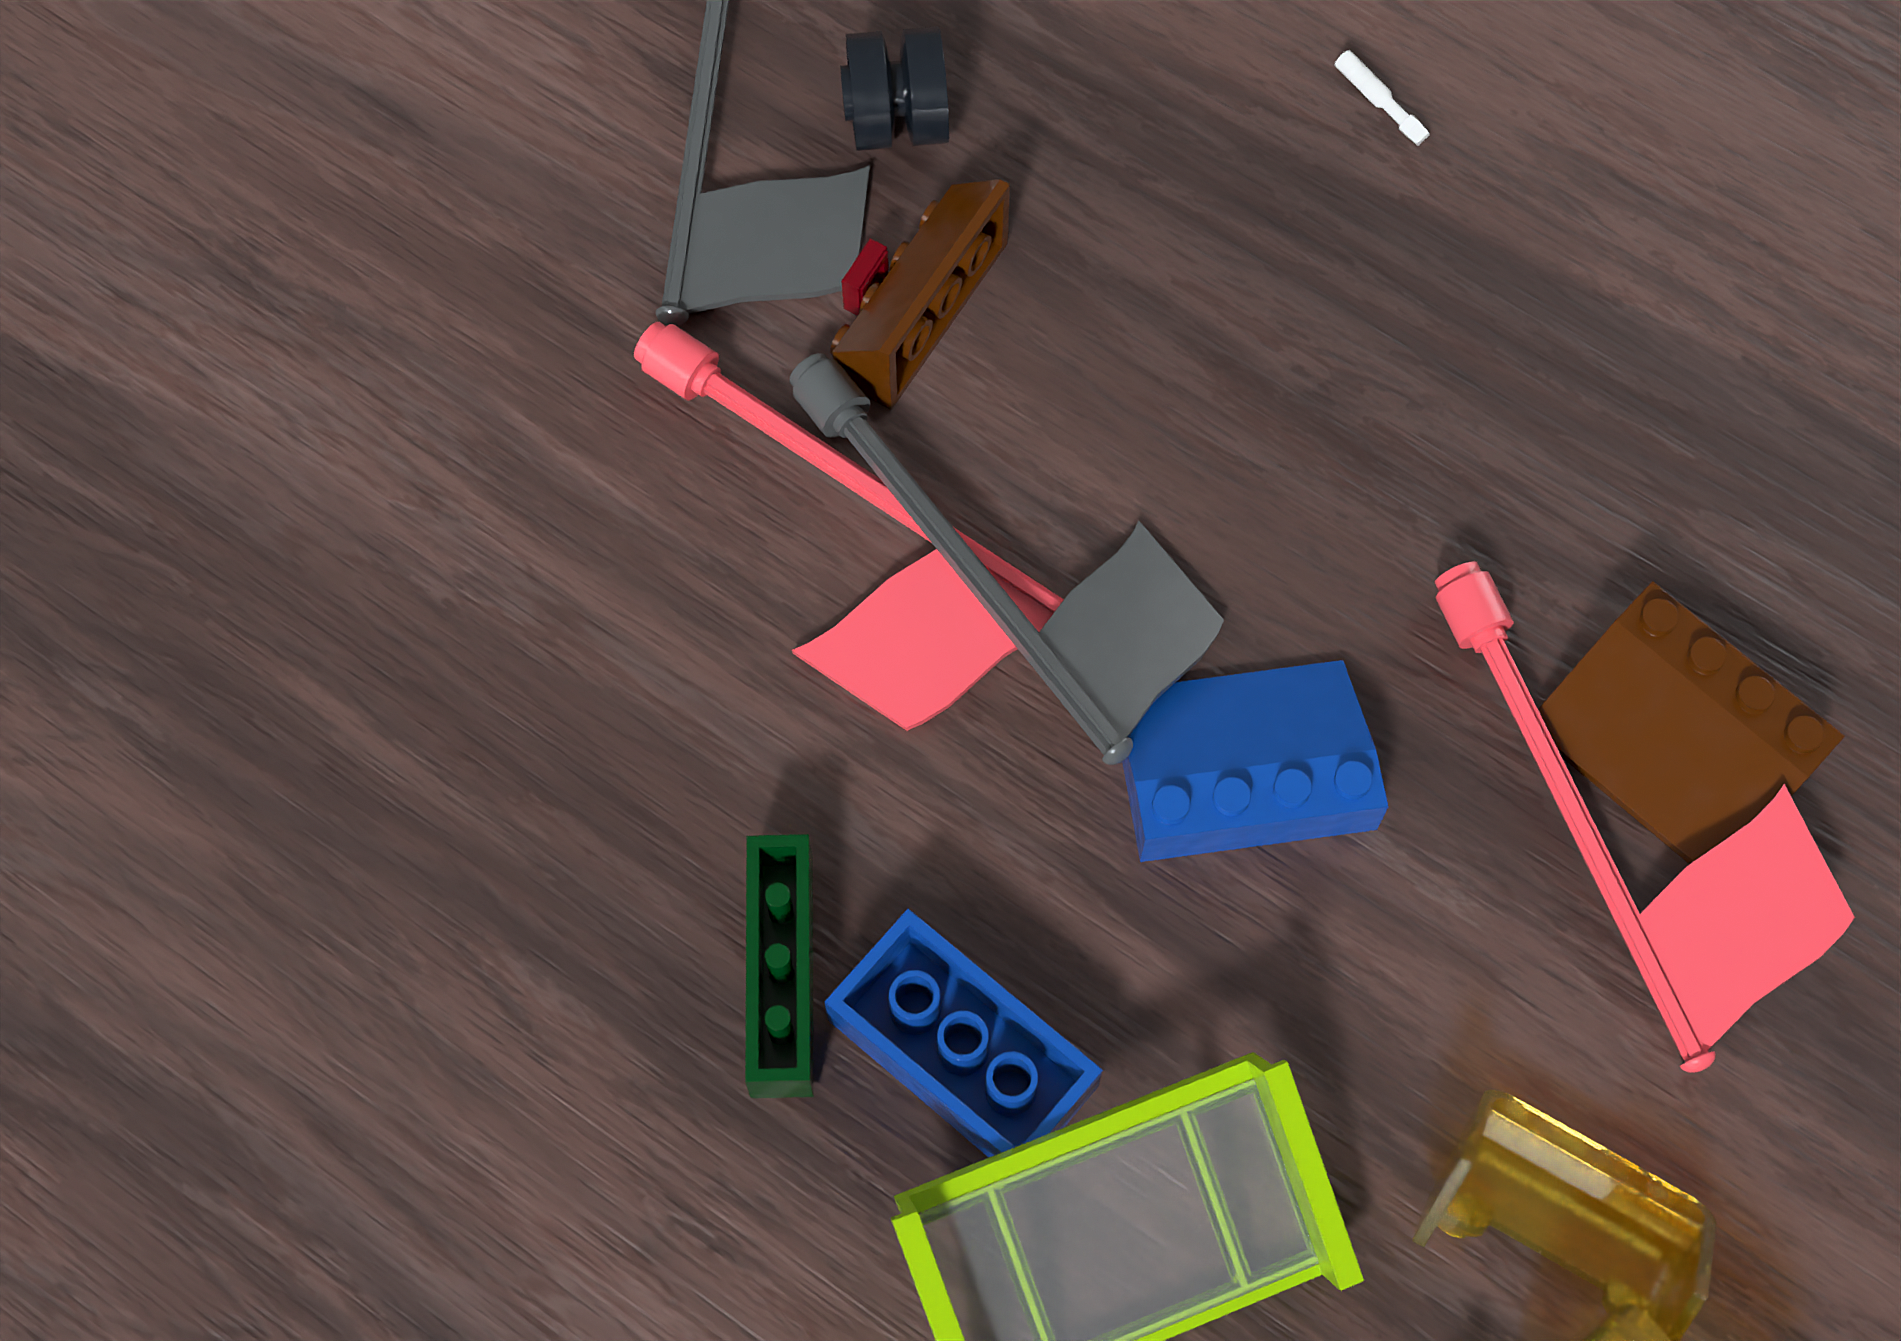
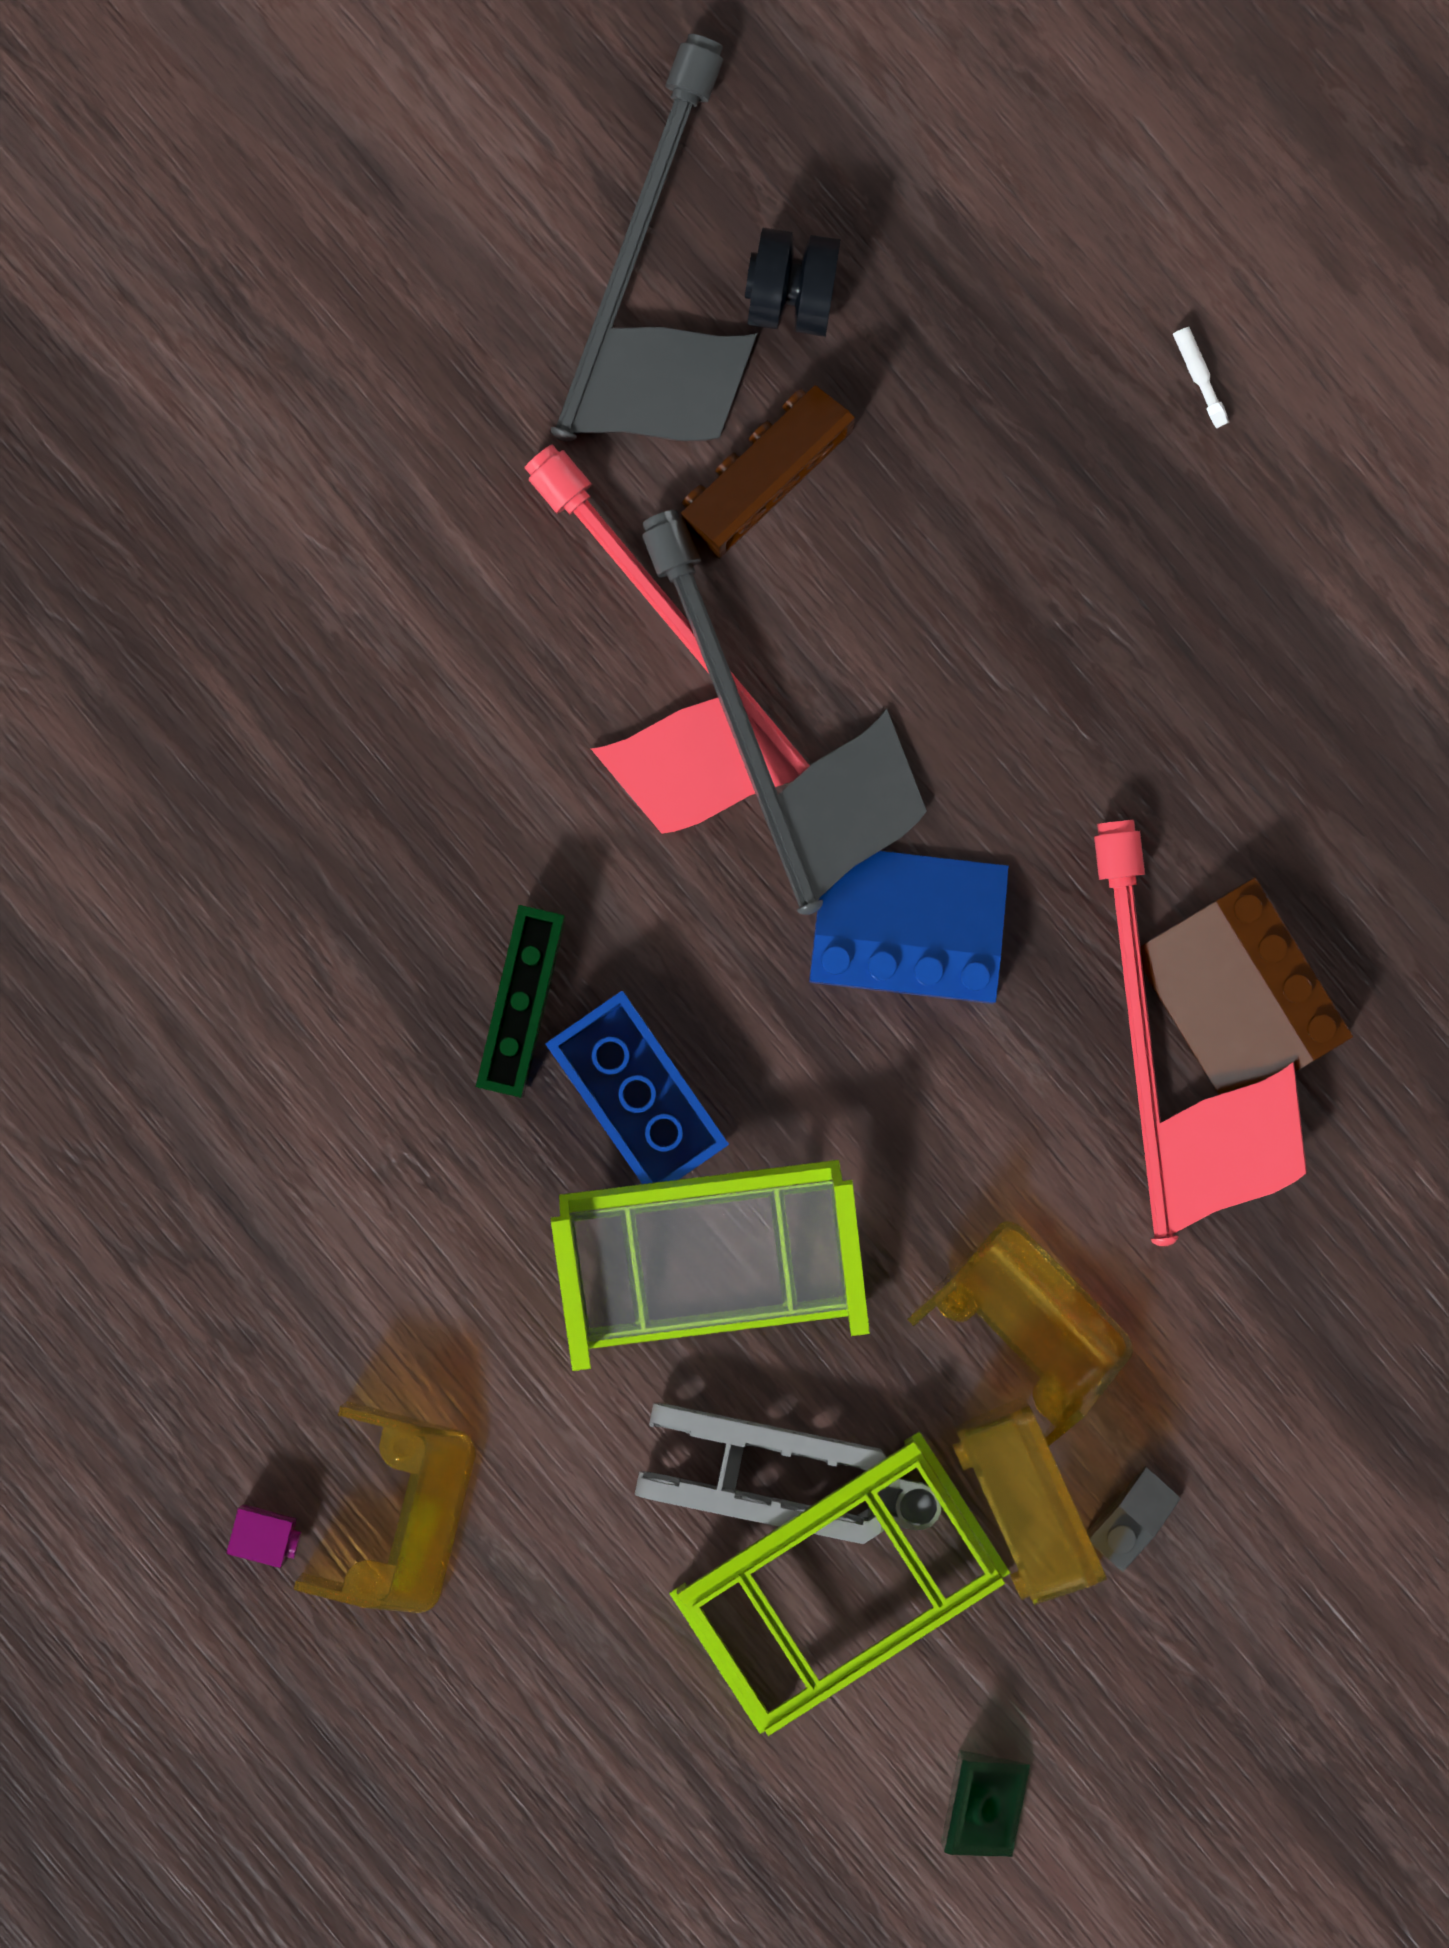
camera: 15 degrees right, 20 degrees up
(867, 269) = (726, 443): dark red tile -> none

